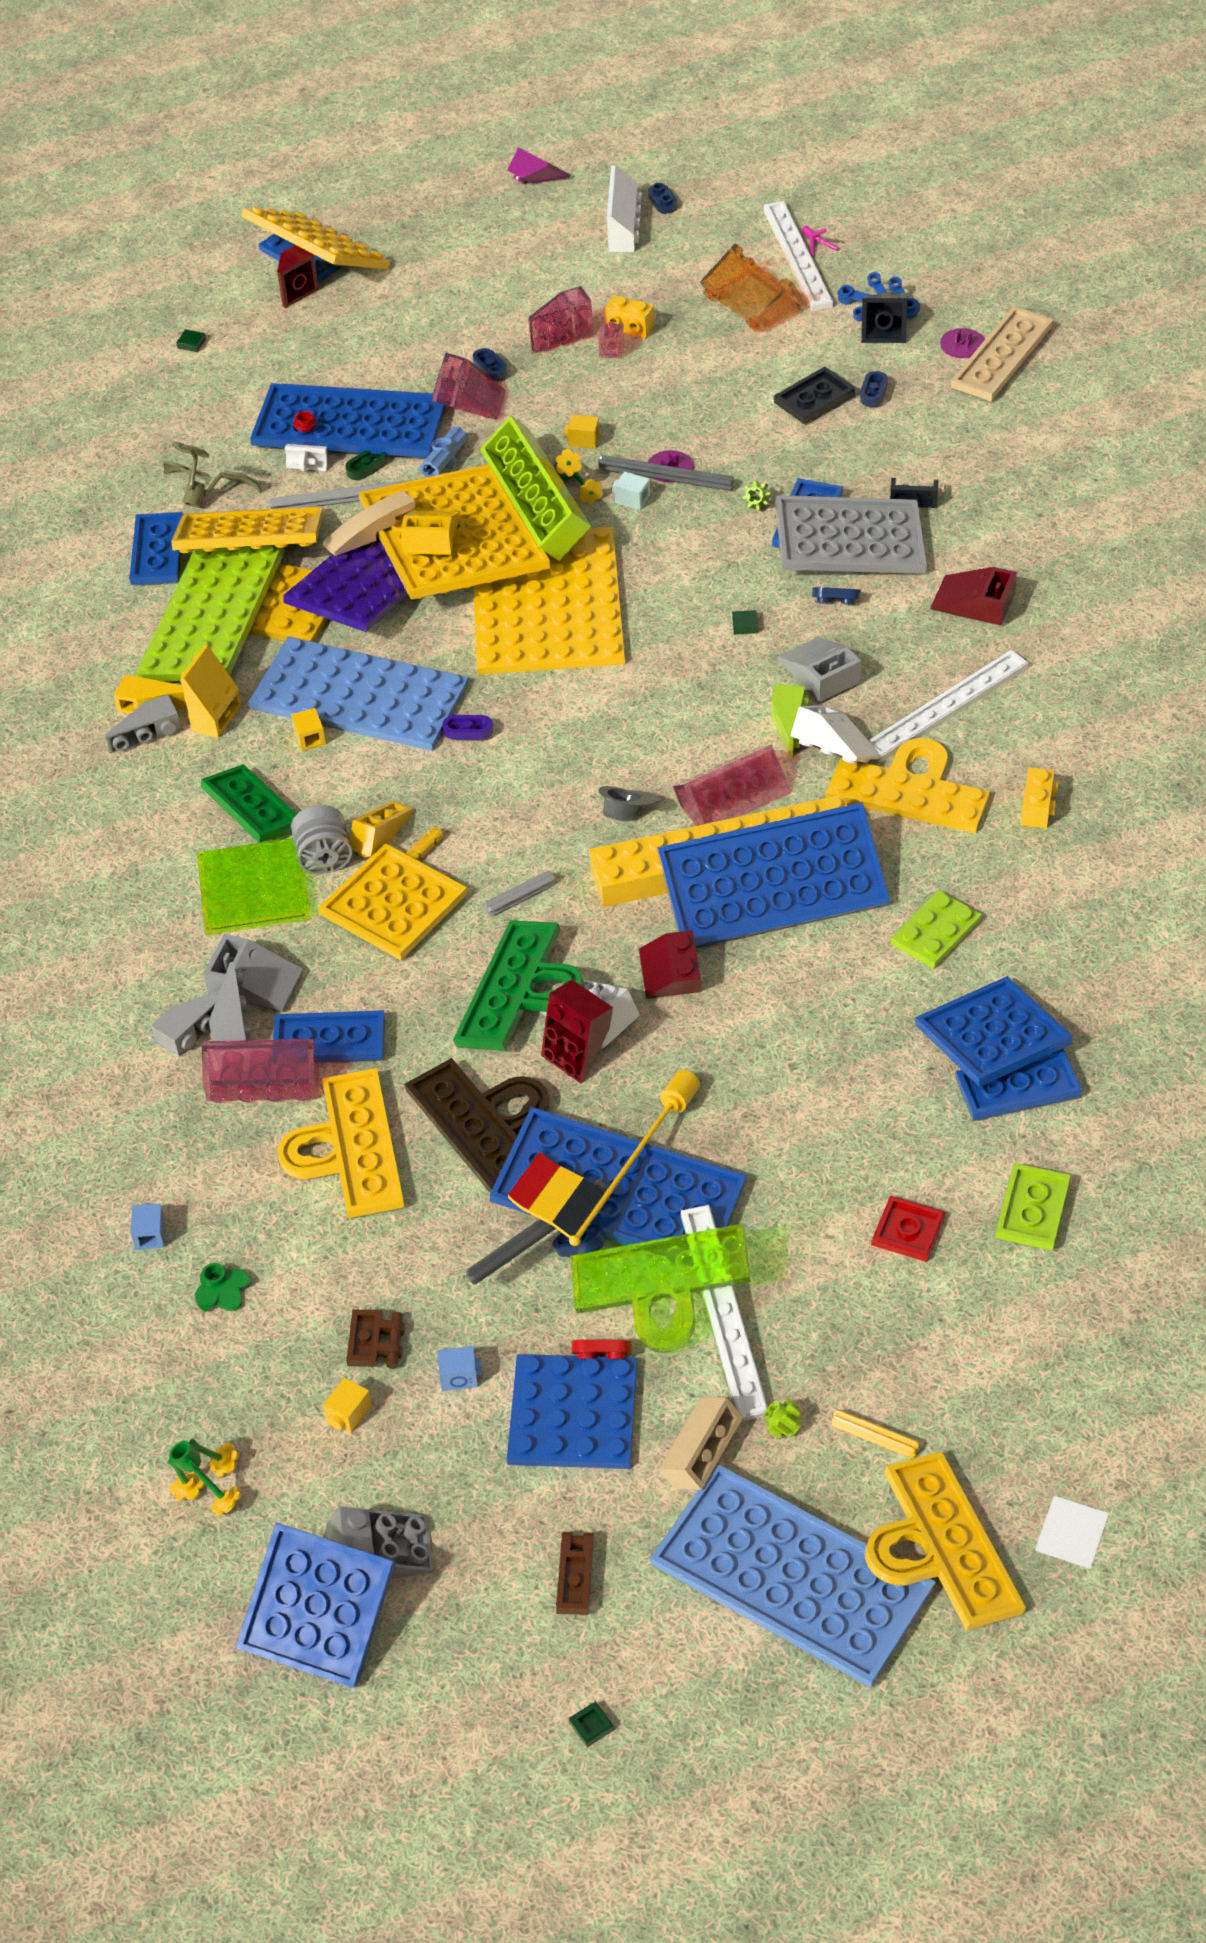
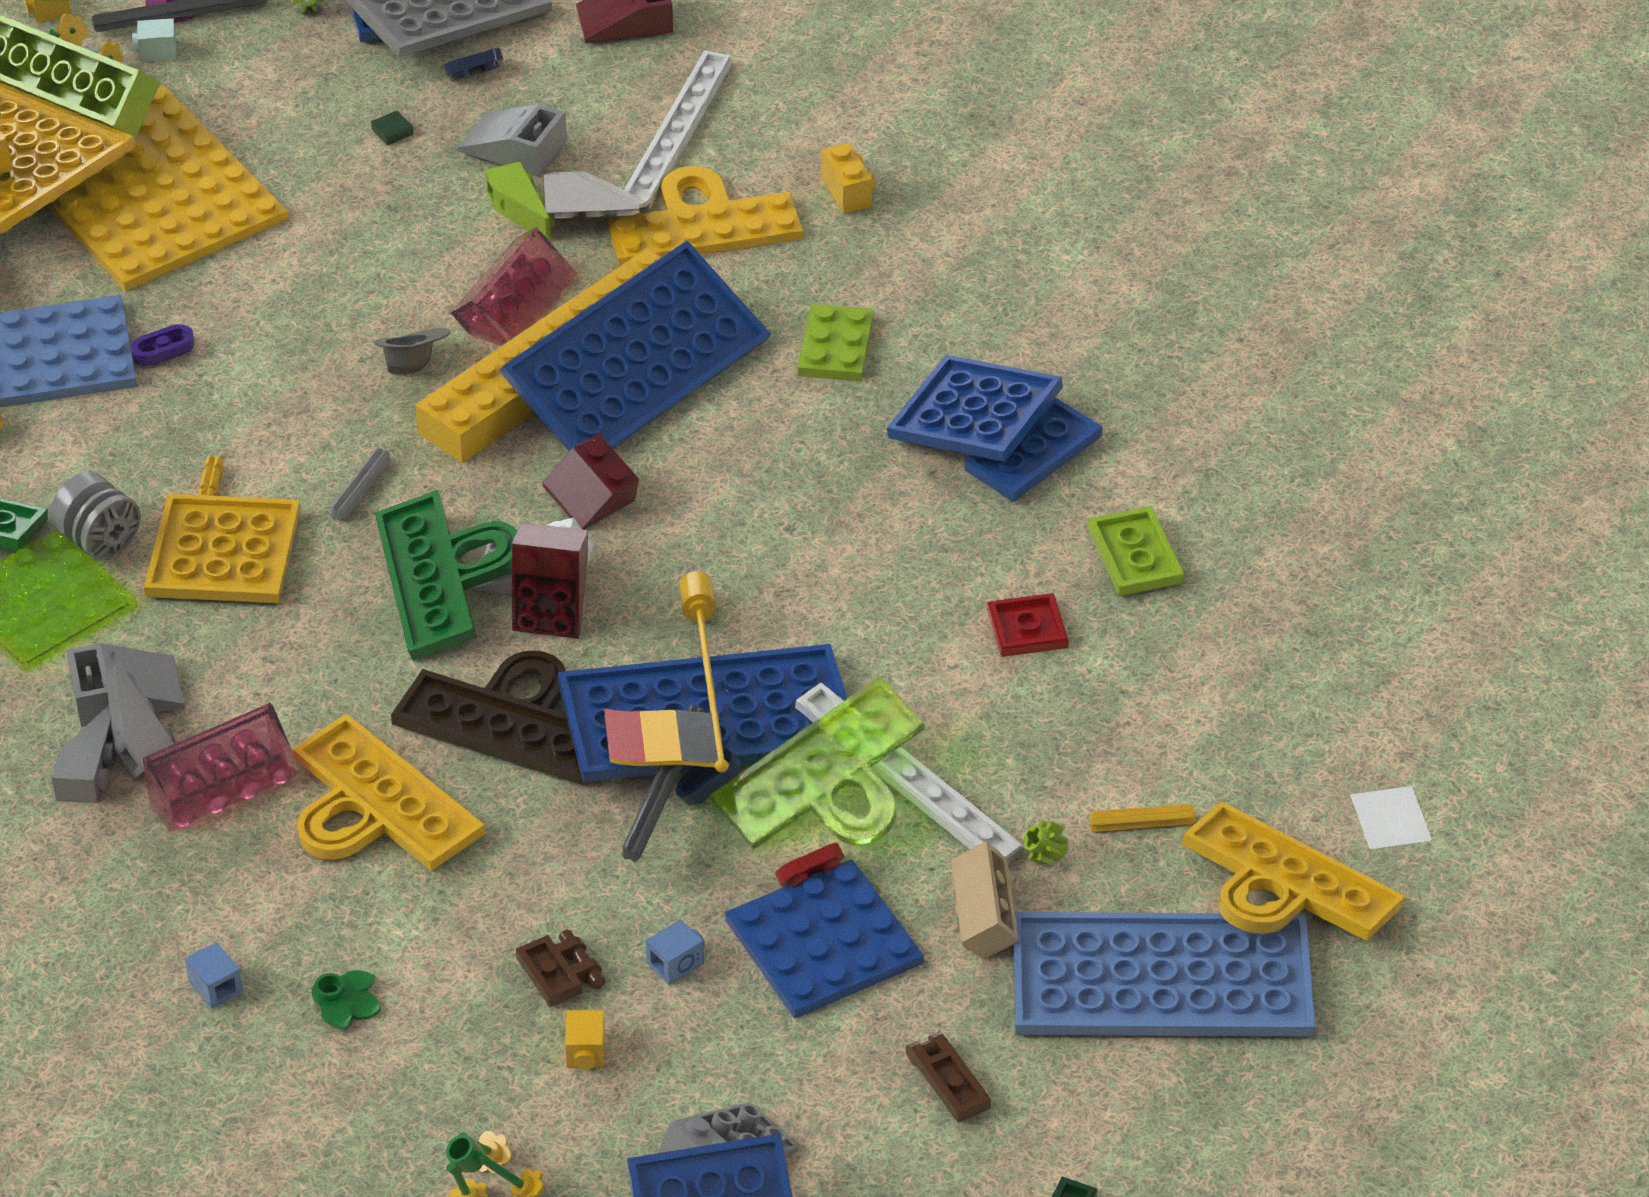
camera: 35 degrees left, 5 degrees down
(336, 1034) = (294, 690): blue plate -> none
(378, 827) = (147, 482): yellow slope -> none

